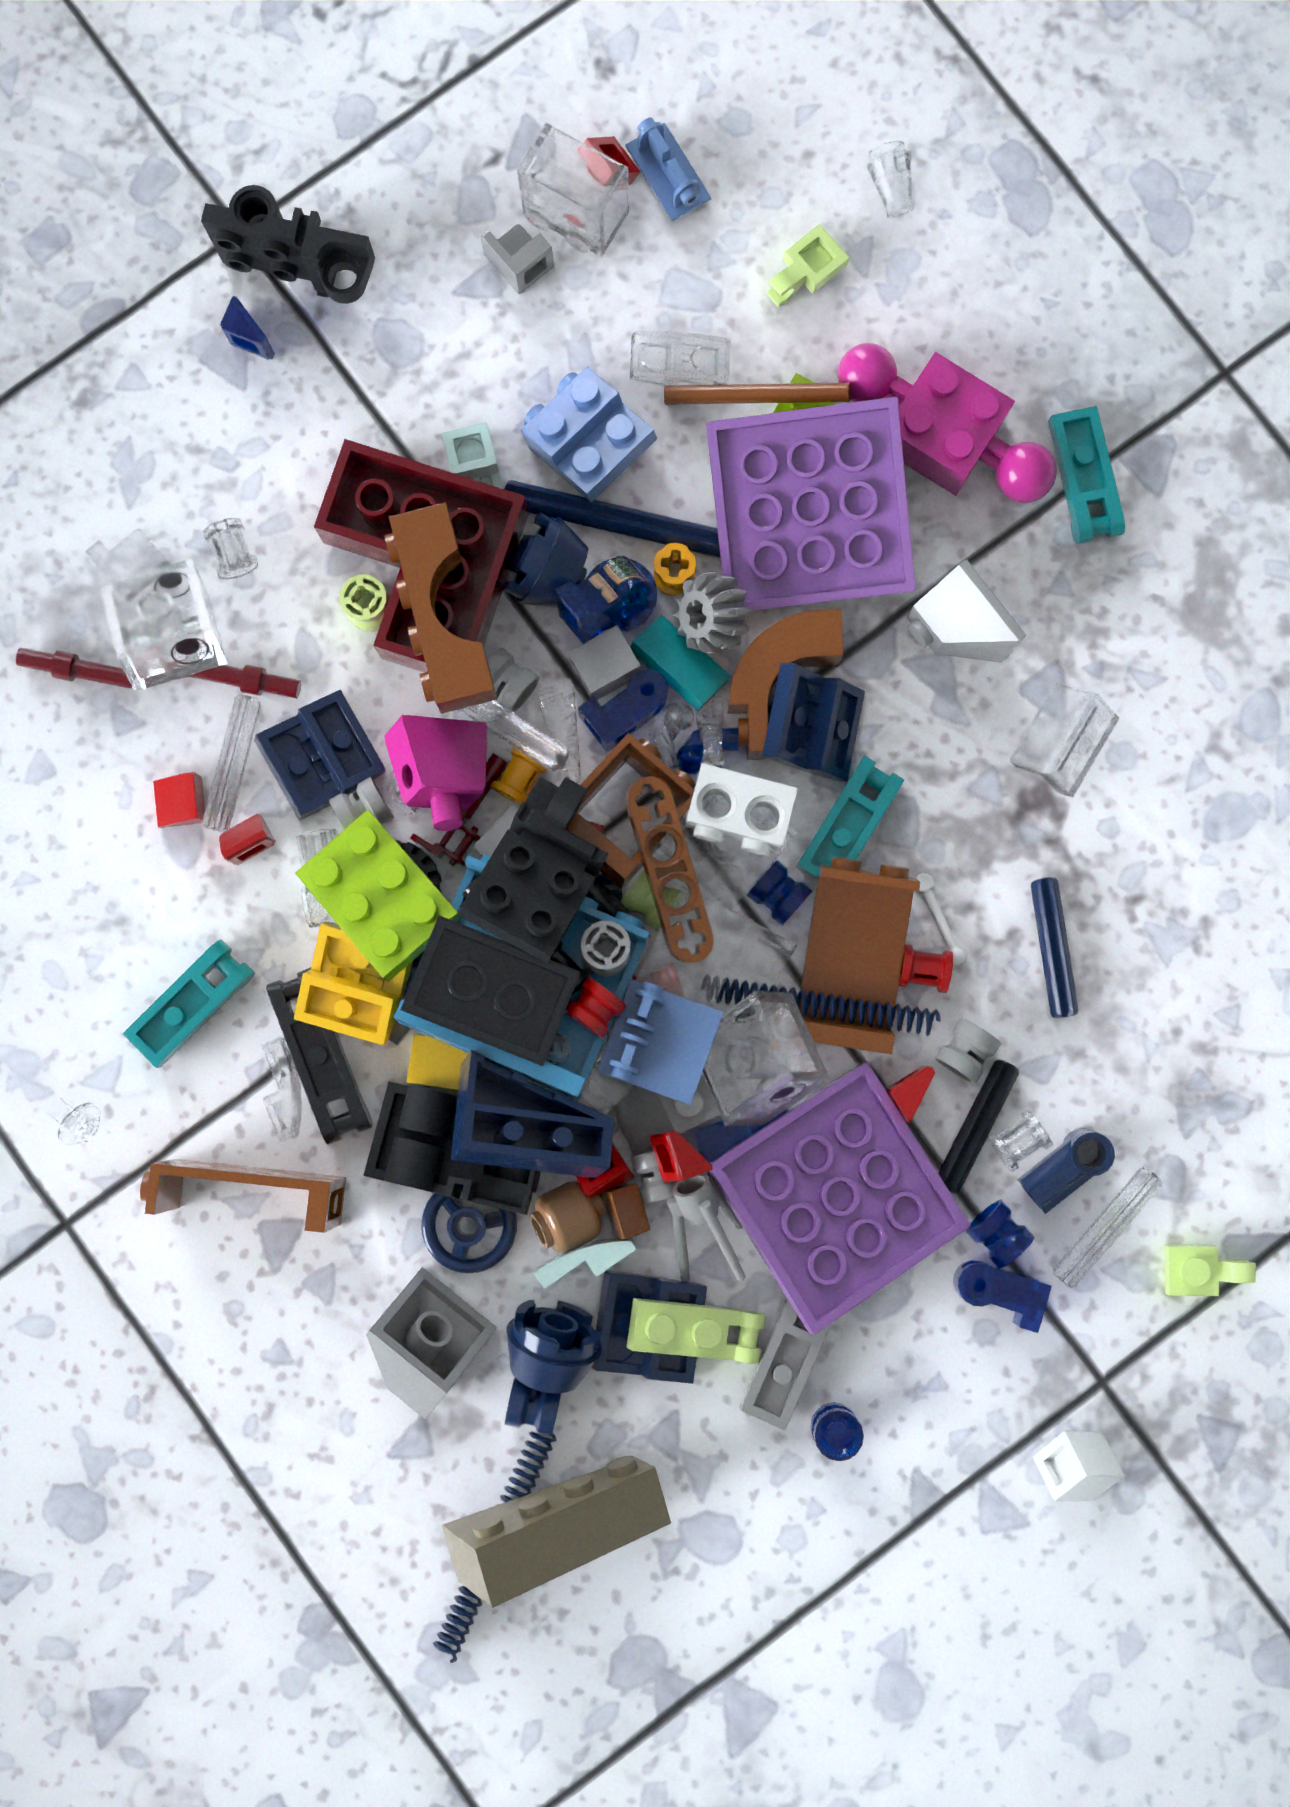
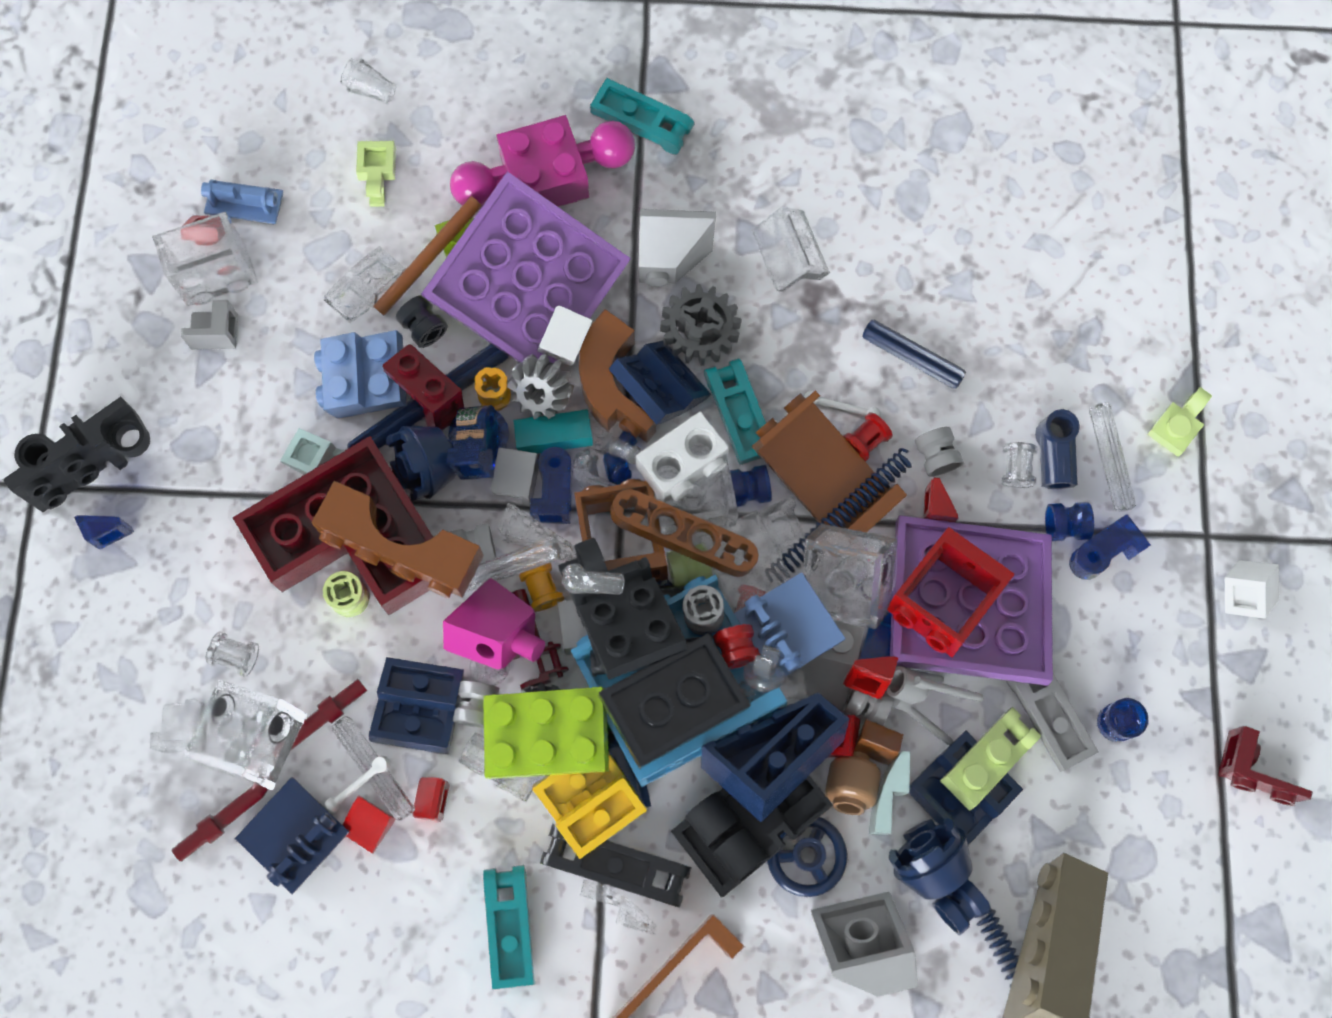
camera: 55 degrees left, 10 degrees down
(115, 743) = (291, 836): none -> dark blue hinge
(234, 768) = (379, 765): none -> white hinge
(434, 1063) = (685, 787): yellow panel -> none
(528, 811) = (579, 581): none -> clear arm
(591, 1055) = (763, 672): none -> clear plate
(620, 504) = (426, 385): none -> dark red bracket
(686, 445) = (421, 321): none -> black wheel
(778, 593) = (564, 335): none -> white panel
(867, 1170) = (970, 564): none -> red window
(900, 1573) = (1243, 752): none -> dark red bracket
(912, 732) = (697, 308): none -> dark grey gear
(977, 1125) = (989, 482): black axle -> none

